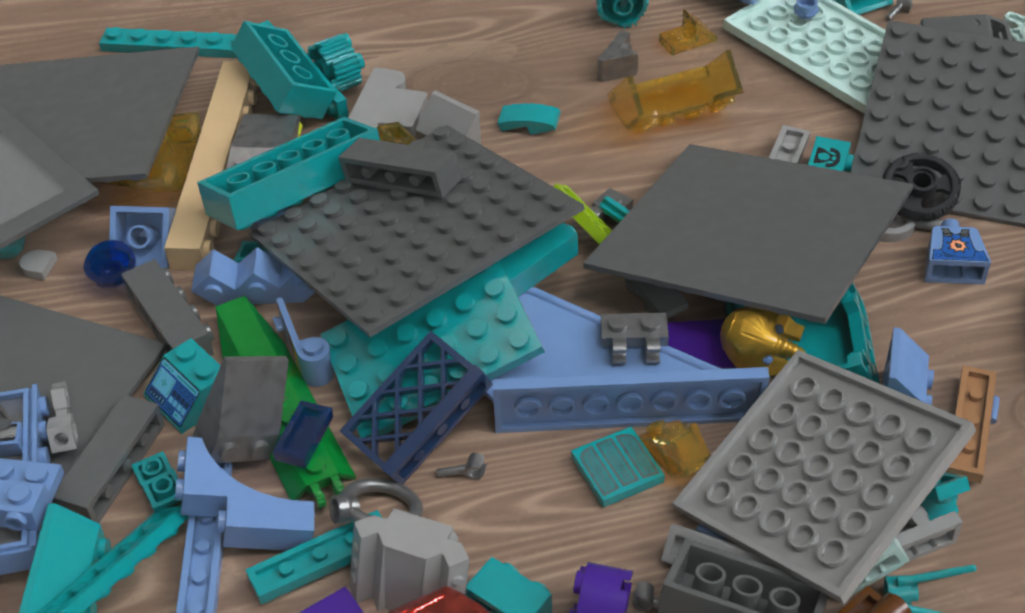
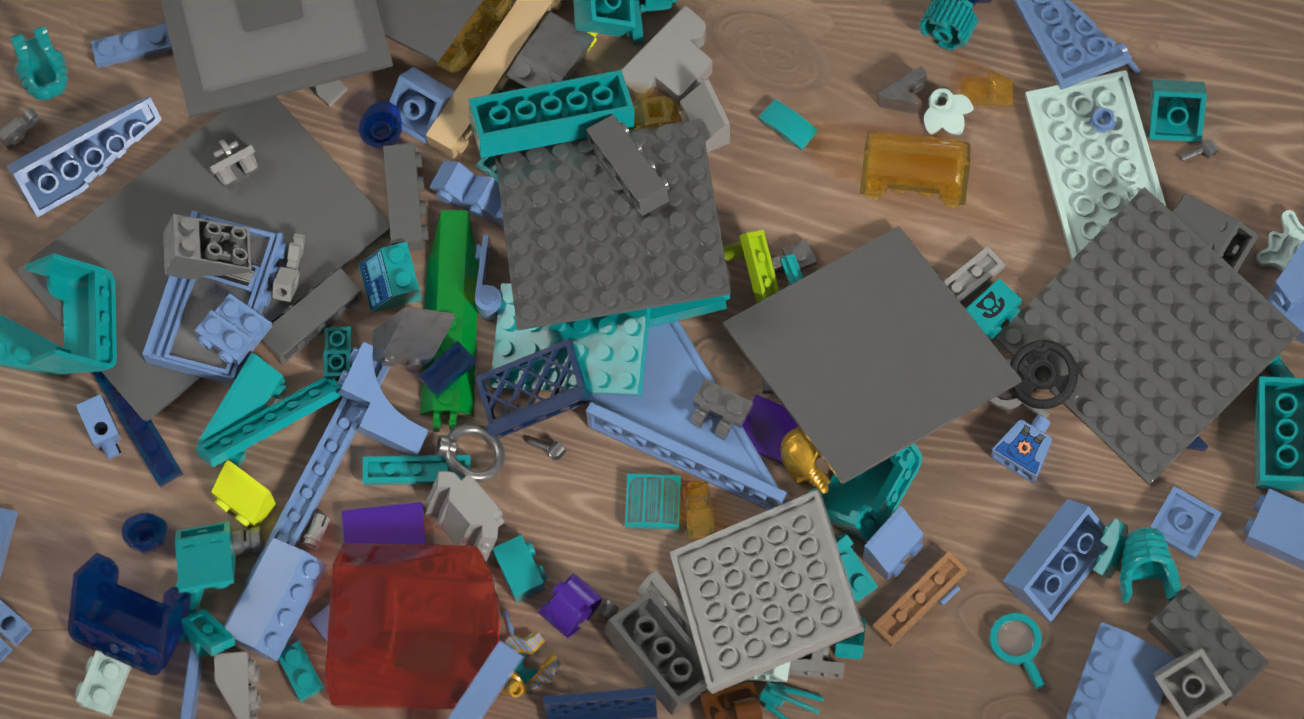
camera: 30 degrees right, 25 degrees up
(665, 58) = (949, 115): none -> light aqua plate

